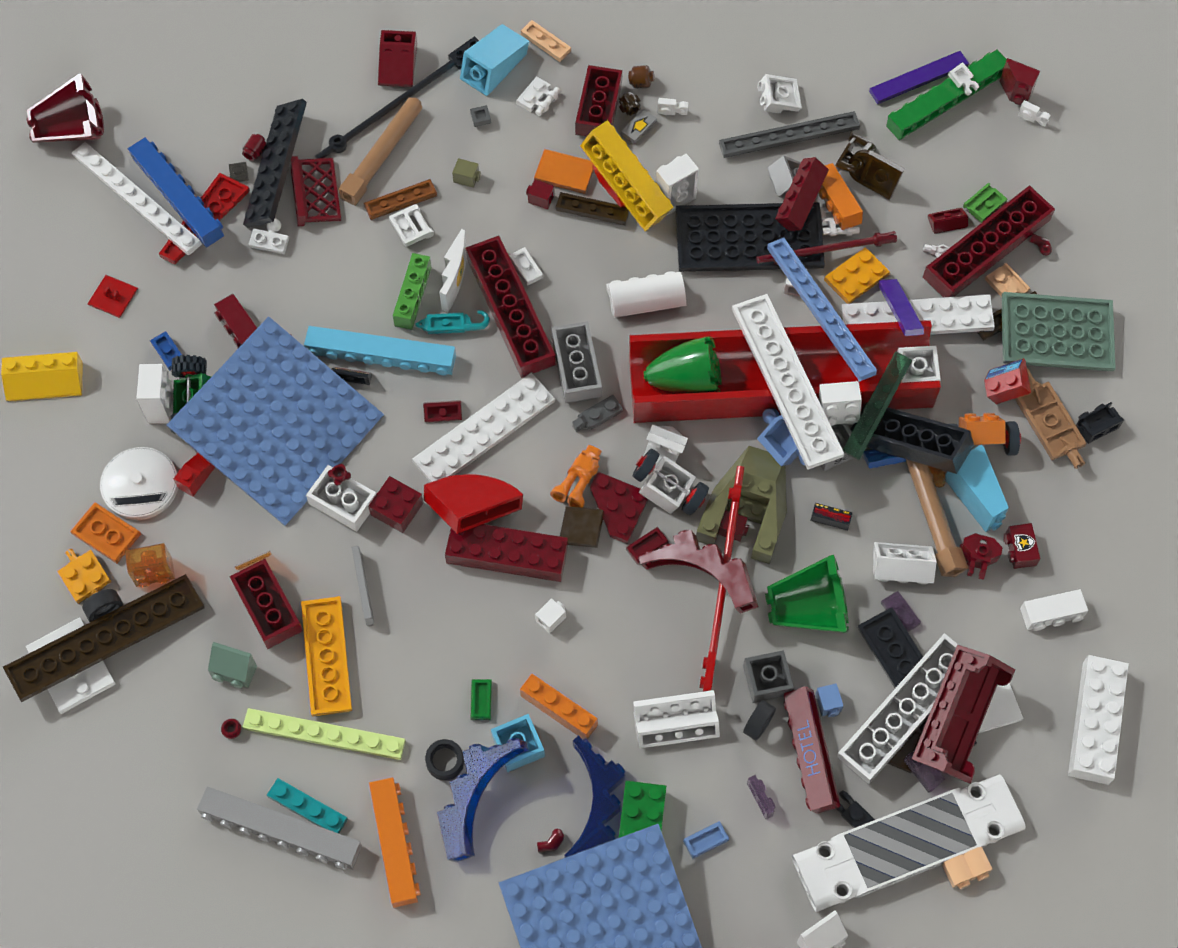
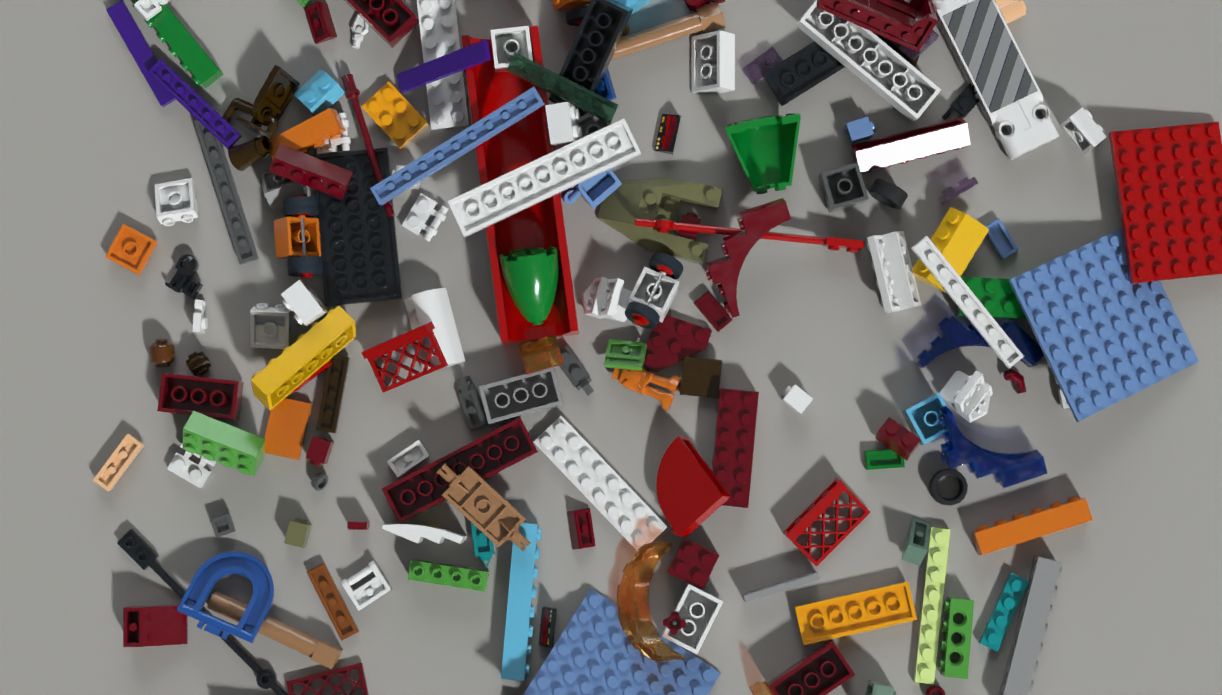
camera: 90 degrees left, 20 degrees up
(315, 764) = (959, 668): none -> bright green brick
(362, 450) = (634, 605): none -> clear orange windscreen
(391, 721) = (916, 541): none -> sand green slope
(404, 135) = (204, 581): none -> blue piece
(437, 628) = (817, 508): none -> red fence
(467, 221) = (358, 525): none -> dark red tile
(472, 316) = (483, 506): none -> medium nougat plate
(493, 59) = (147, 517): medium azure slope -> none
(500, 708) = (898, 438): none -> dark red brick
(512, 194) = (319, 481): none -> dark grey piece
(537, 787) = (968, 395): none -> white piece
(553, 114) = (223, 443): none -> bright green brick
(558, 707) = (889, 383): orange brick -> none
(592, 317) = (471, 404): none -> dark grey hinge
(609, 457) = (625, 354): none -> bright green plate
(615, 378) = (541, 354): none -> clear orange slope
(634, 259) = (402, 341): none -> red fence
(637, 785) = (967, 302): none -> white tile
(639, 126) = (224, 352): light grey tile -> none
(656, 155) = (270, 326): none -> white plate
(695, 777) = (957, 241): none -> yellow slope
(707, 97) = (181, 281): none -> black piece
(737, 59) = (131, 249): none -> orange plate
(741, 183) = (299, 237): none -> brick
(754, 288) = (419, 215): none -> white plate
(821, 147) = (249, 152): none -> dark brown plant
(870, 111) = (194, 104): none -> dark purple tile
(878, 211) = (319, 92): none -> medium azure slope

